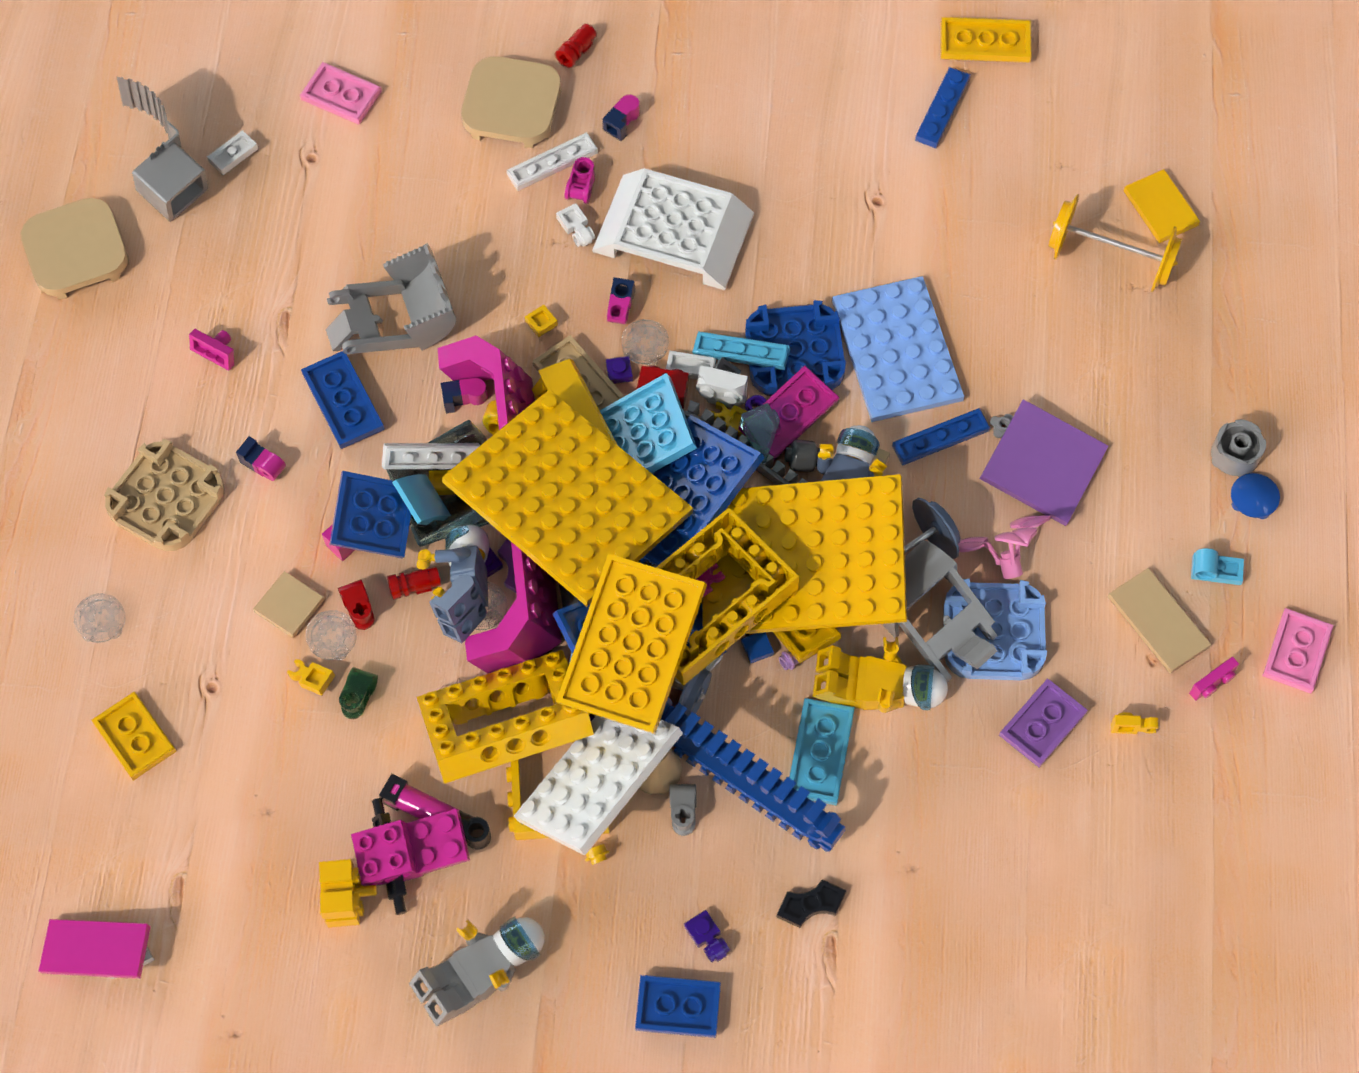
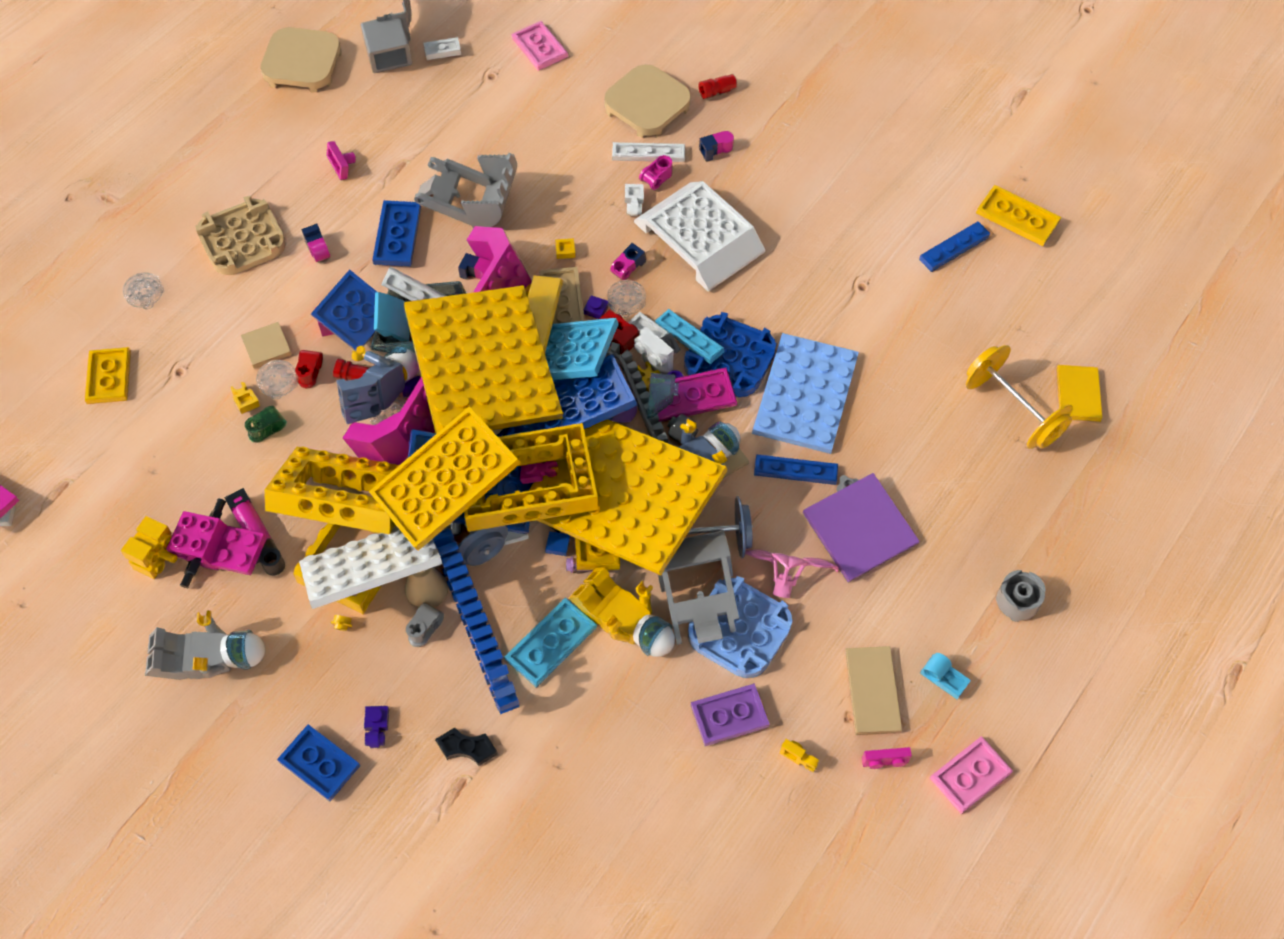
camera: 30 degrees right, 5 degrees down
(1255, 495) = (1013, 639): blue dish -> none

